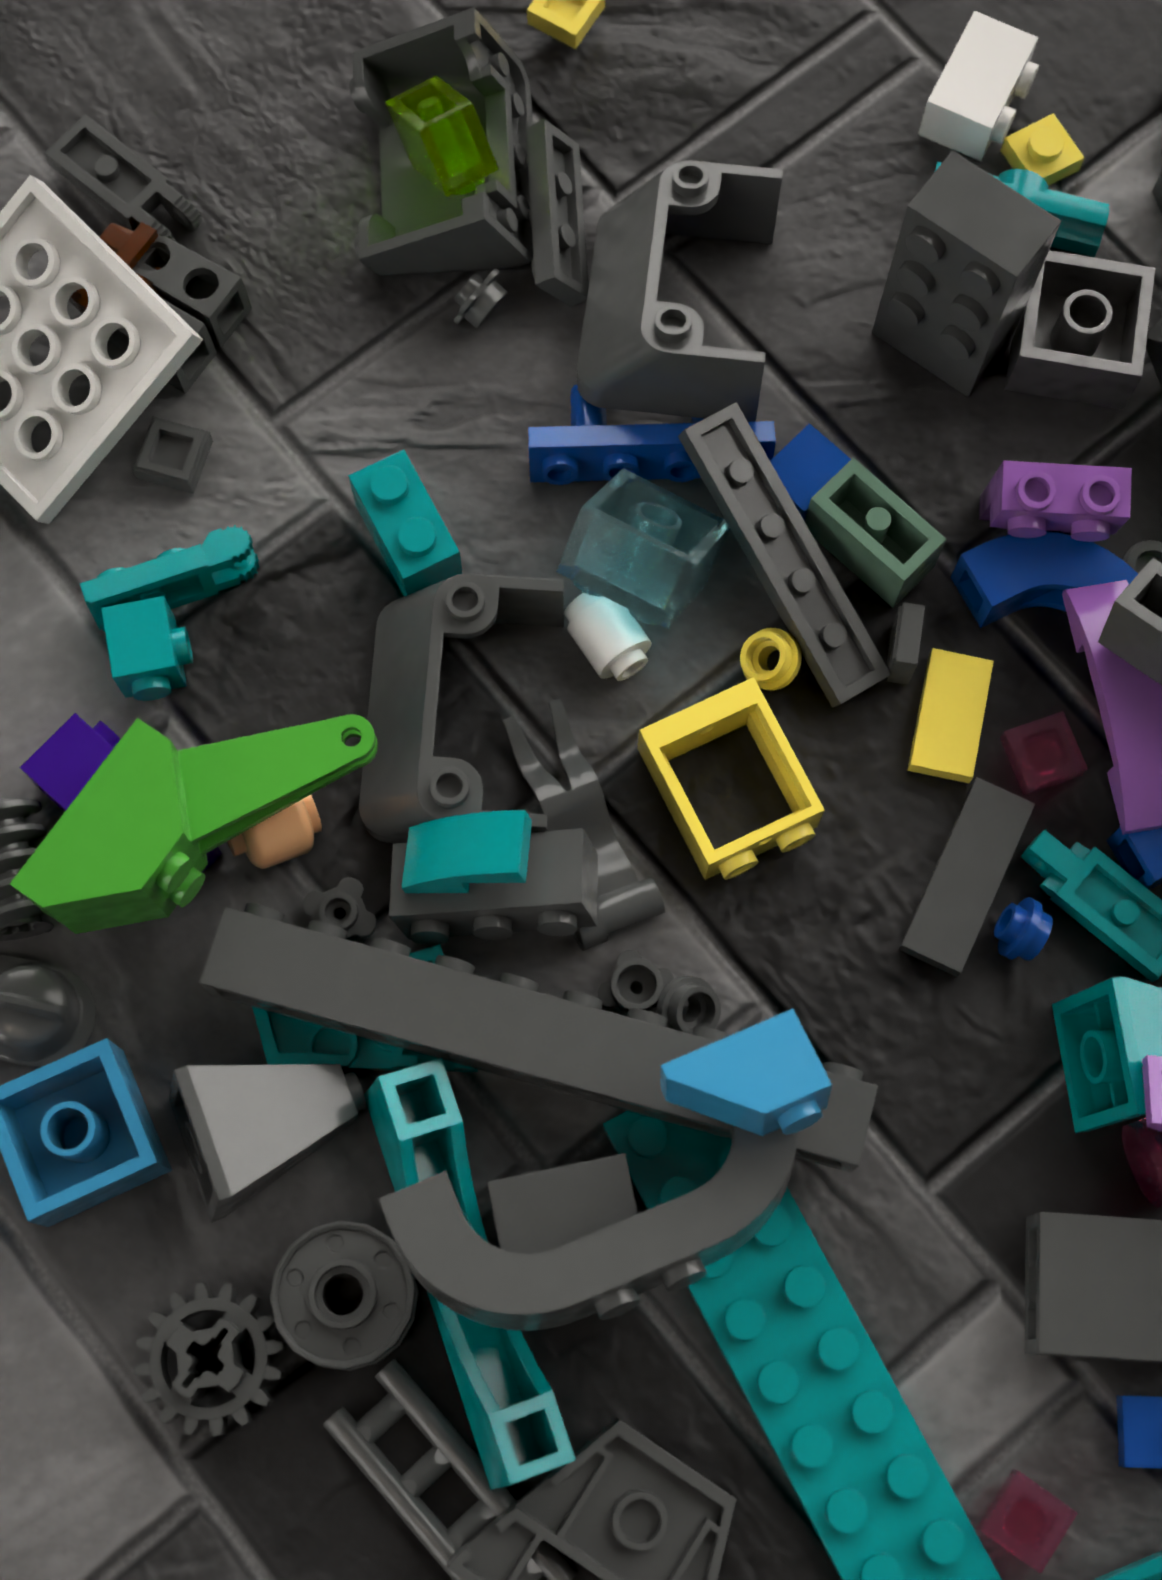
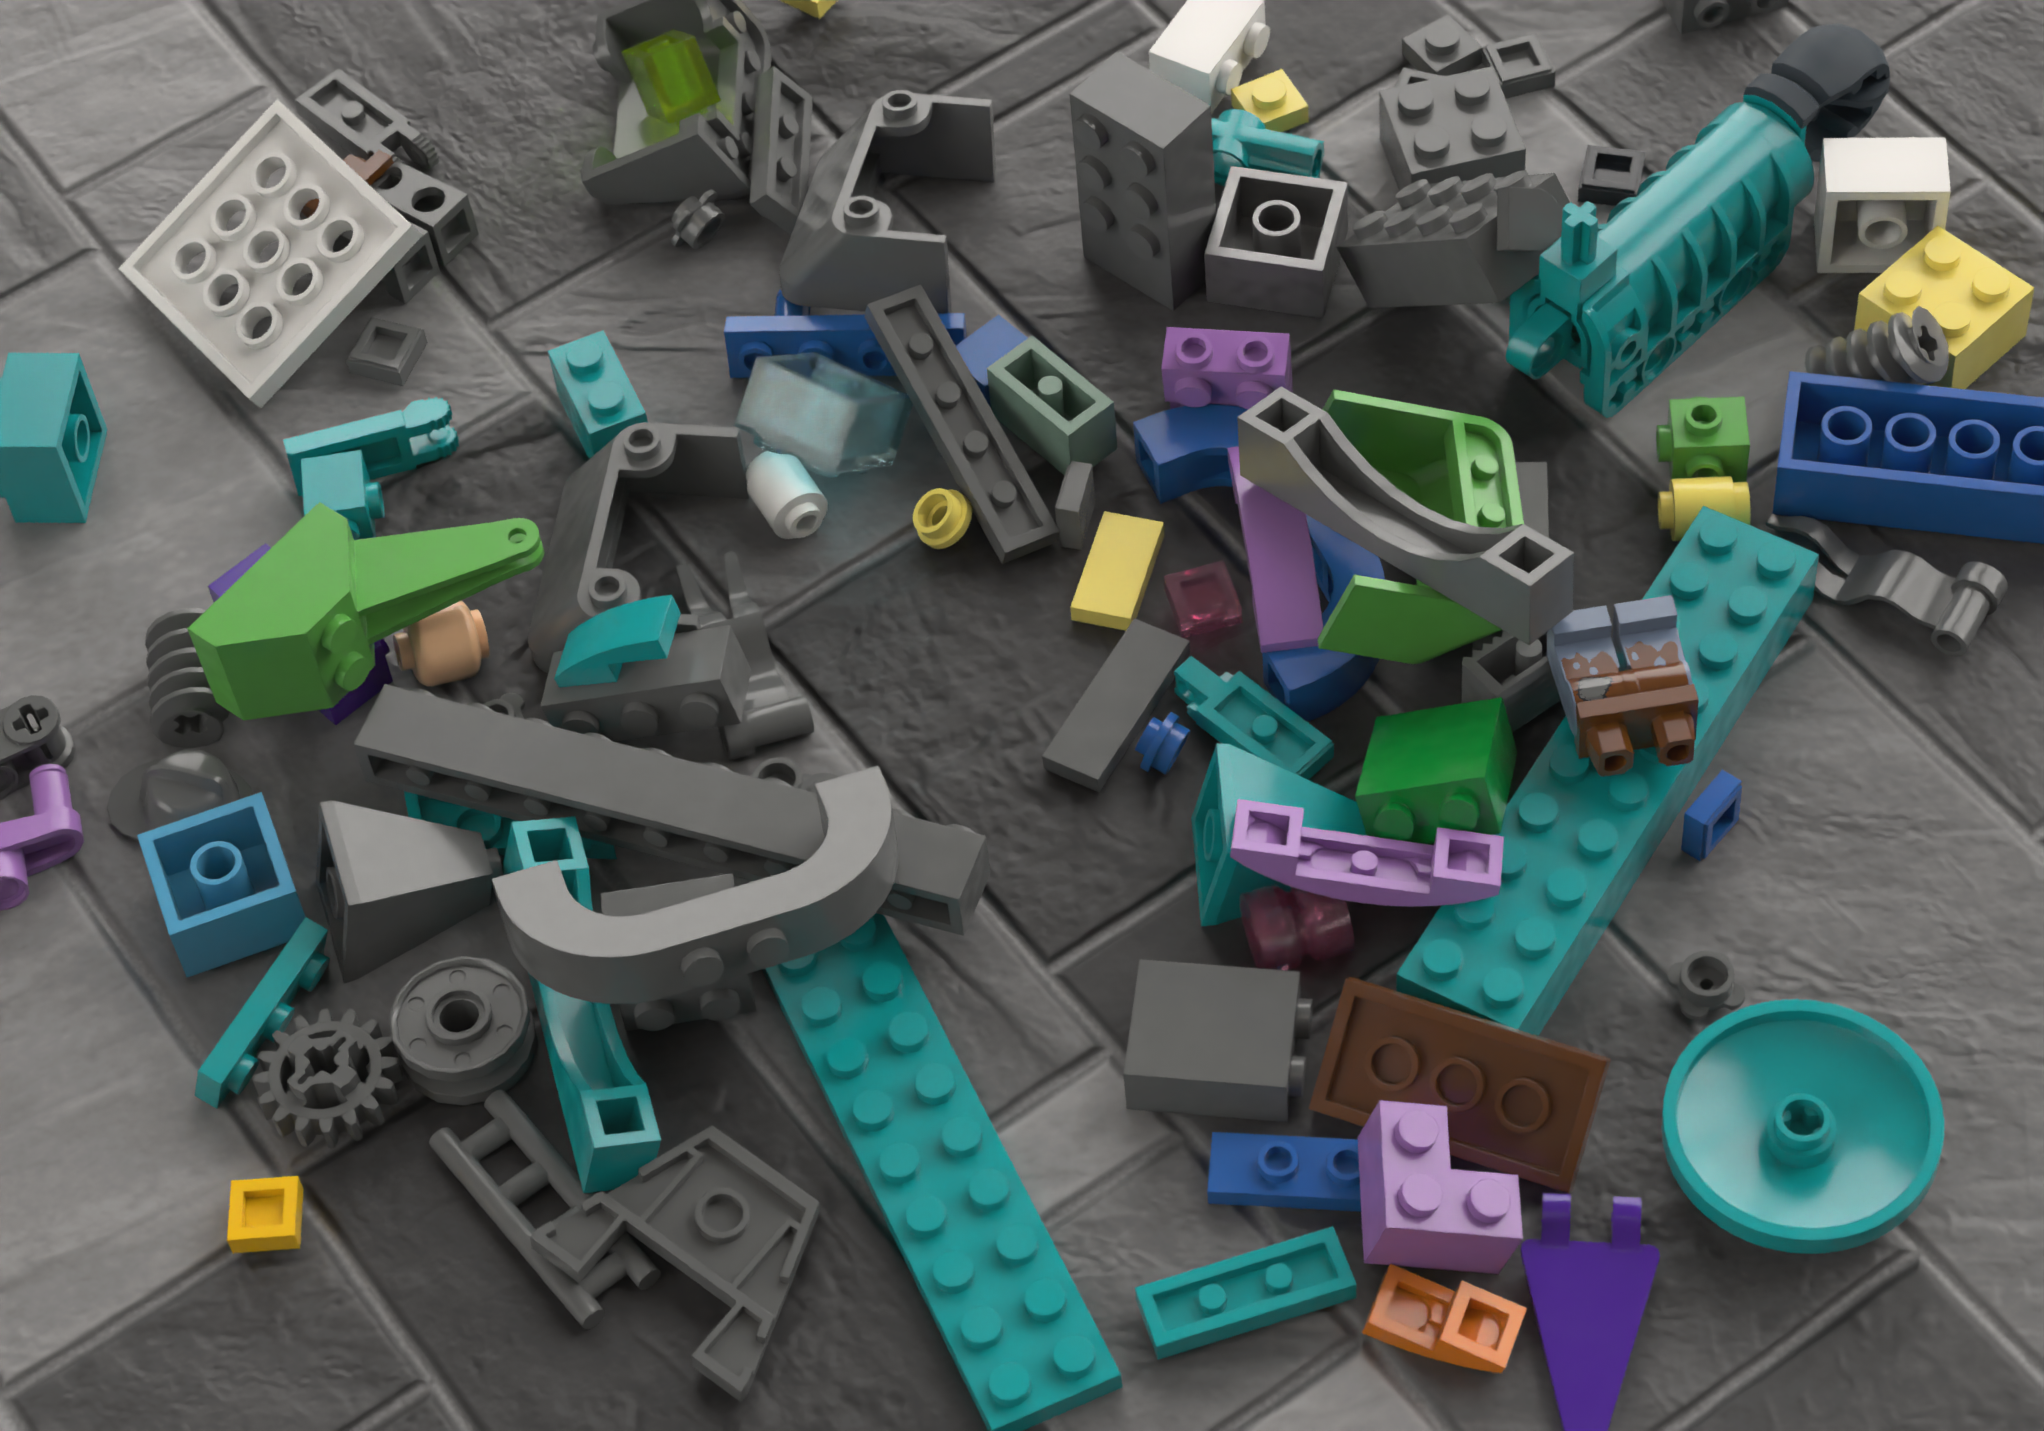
camera: 10 degrees right, 20 degrees down
(135, 1285) = (267, 1010): none -> teal plate
(162, 1525) = (265, 1214): none -> yellow plate
(705, 722) = (896, 560): light yellow window -> none
(753, 1078) = (840, 779): dark azure slope -> none
(1026, 1521) = (1103, 1233): clear pink plate -> none

